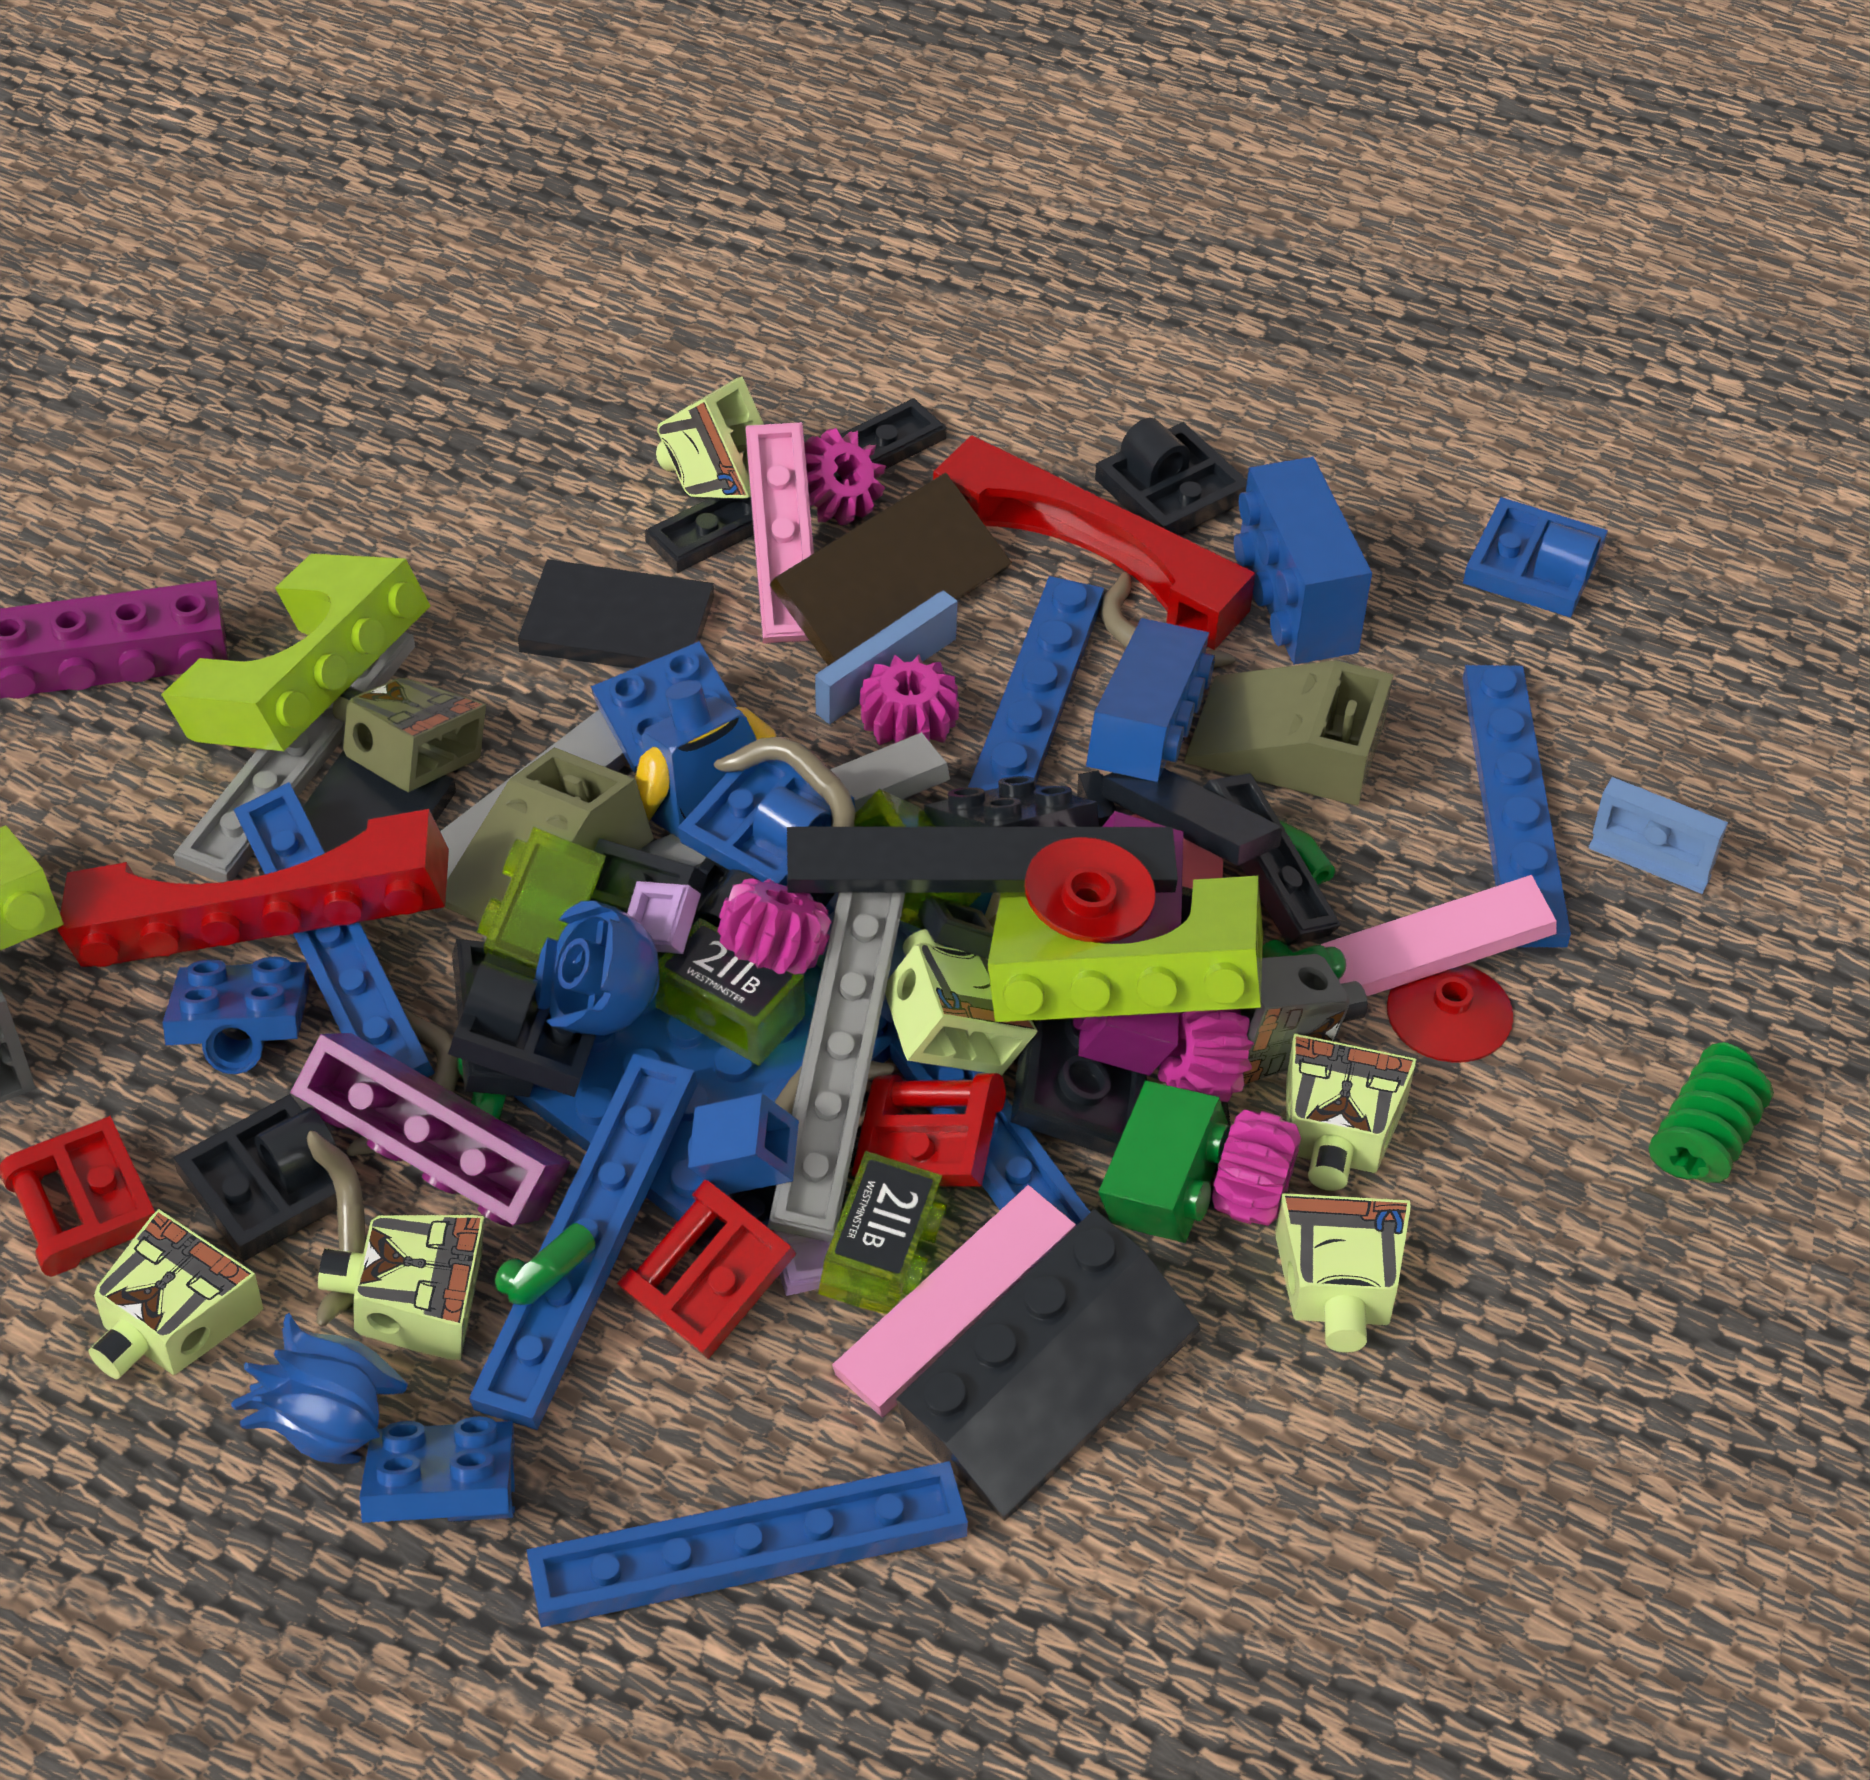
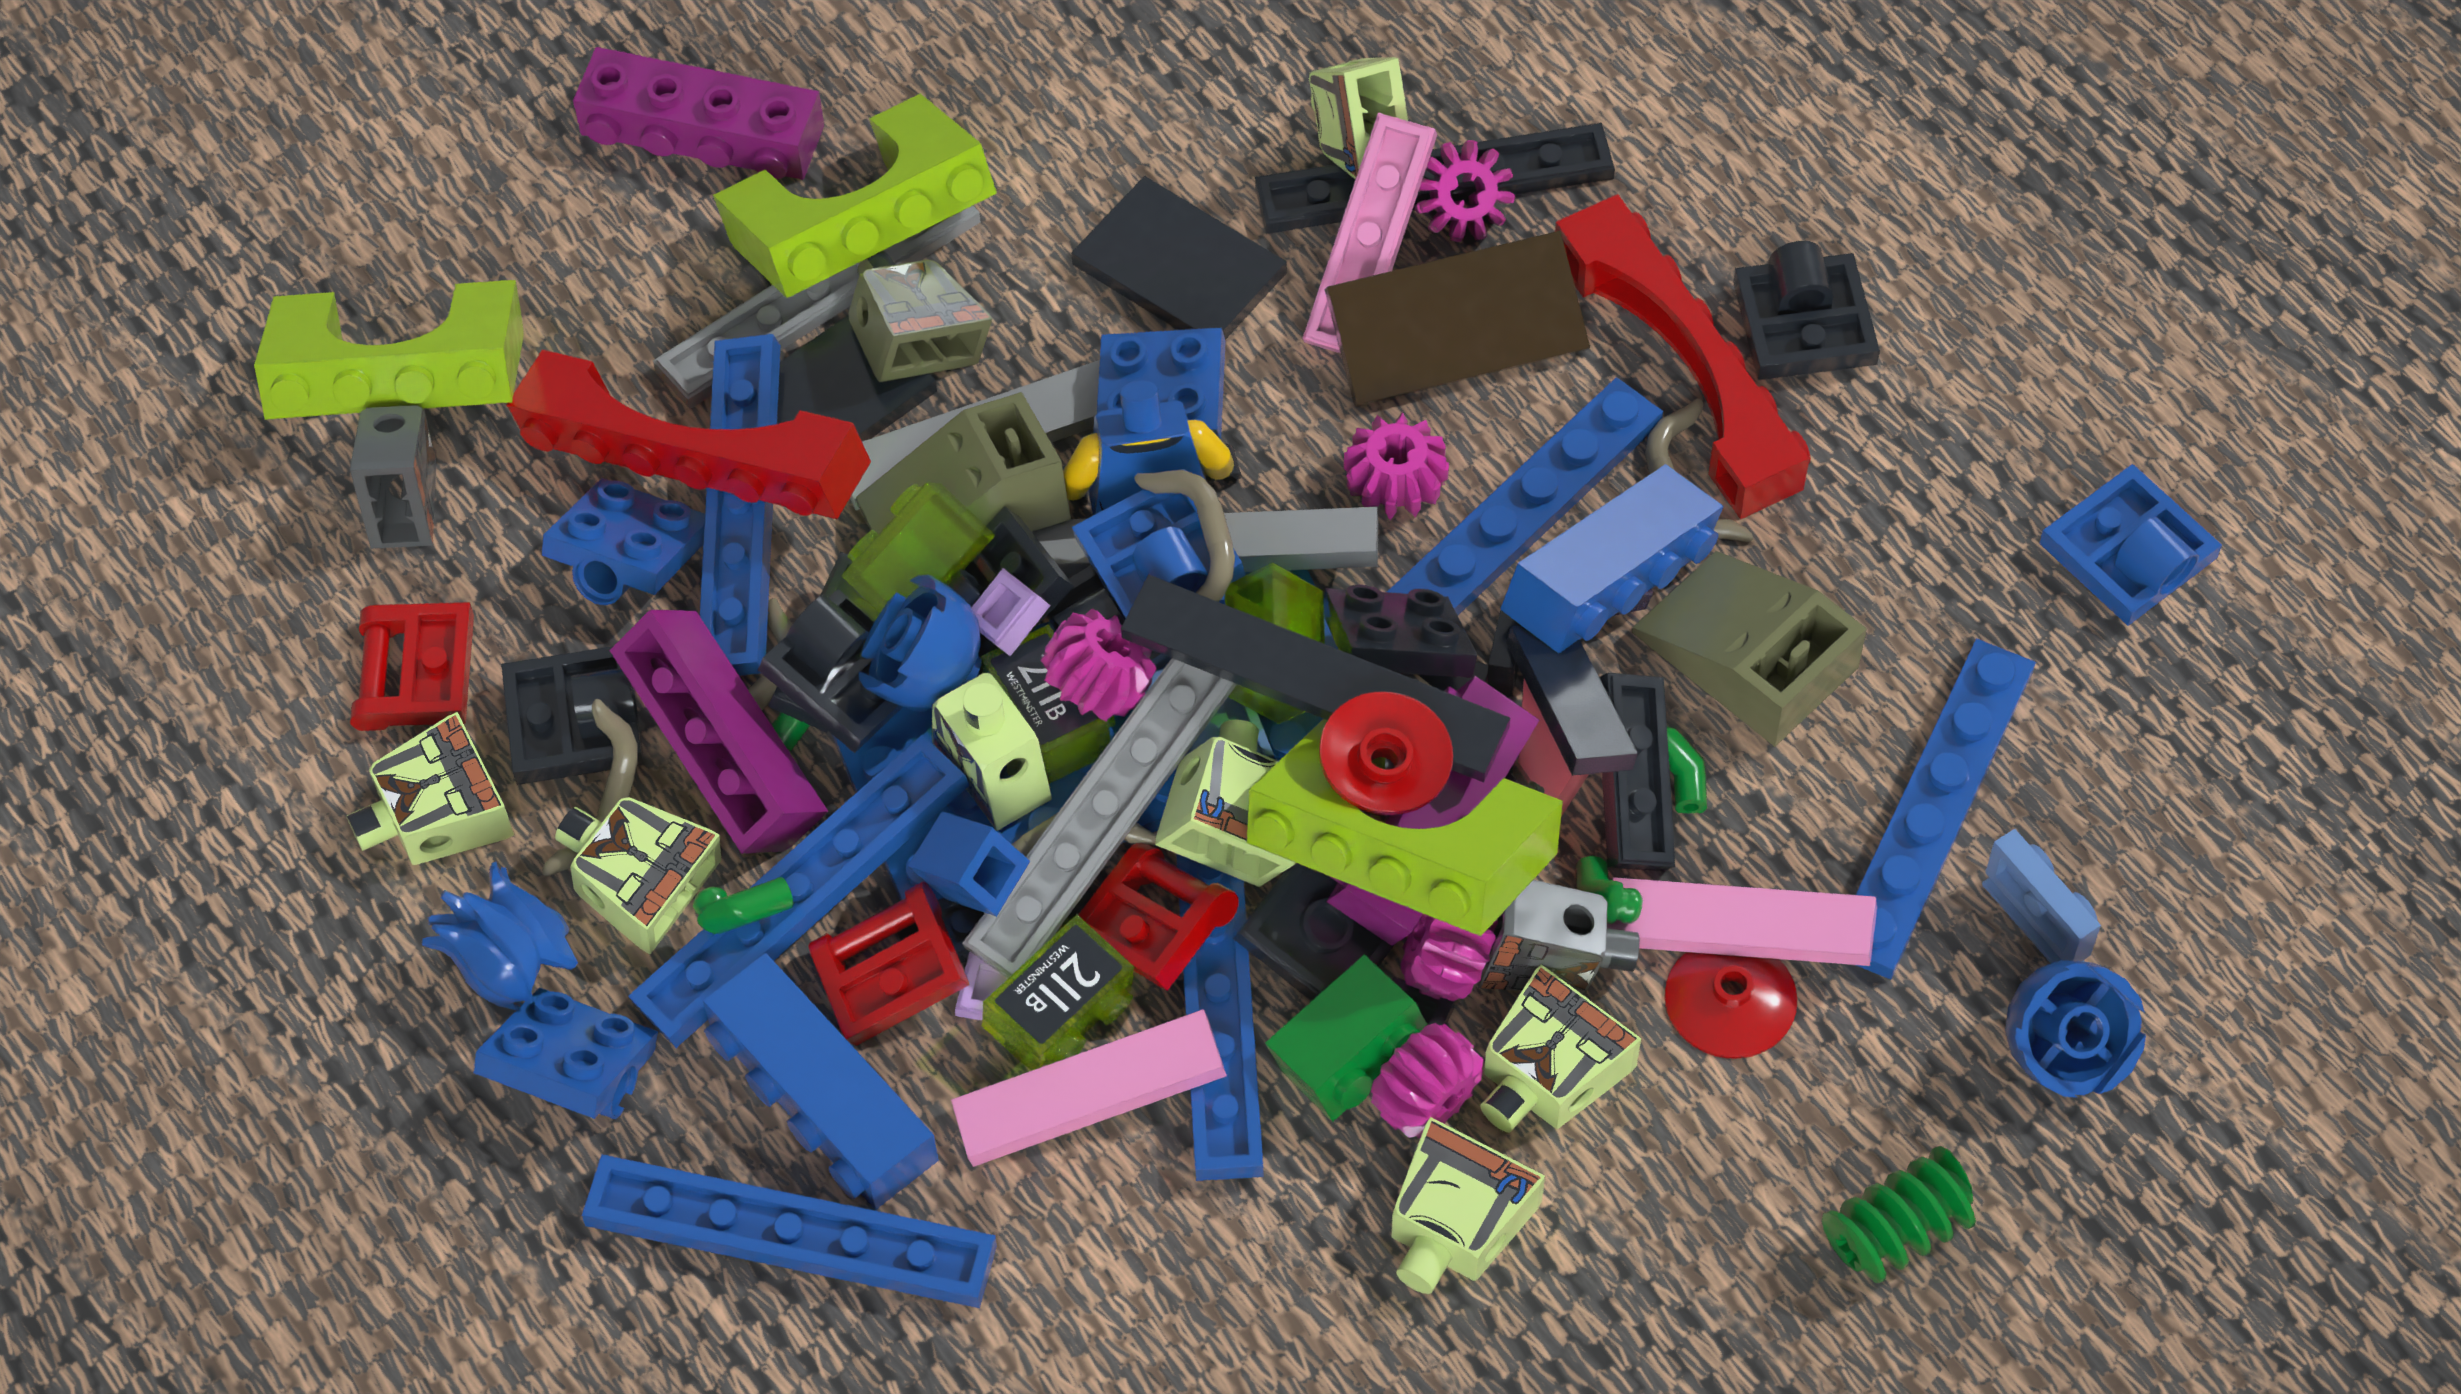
camera: 30 degrees right, 10 degrees up
(700, 1397) = (819, 1082): none -> blue brick
(709, 1031) = (980, 735): none -> yellowish green torso
(918, 632) = (1428, 397): medium blue tile -> none
(957, 926) = (1273, 727): black tile -> none
(1048, 1365) = (1124, 1187): black slope -> none
(1303, 560) = (1862, 462): blue brick -> none
(1750, 912) = (2075, 1027): none -> blue cylinder

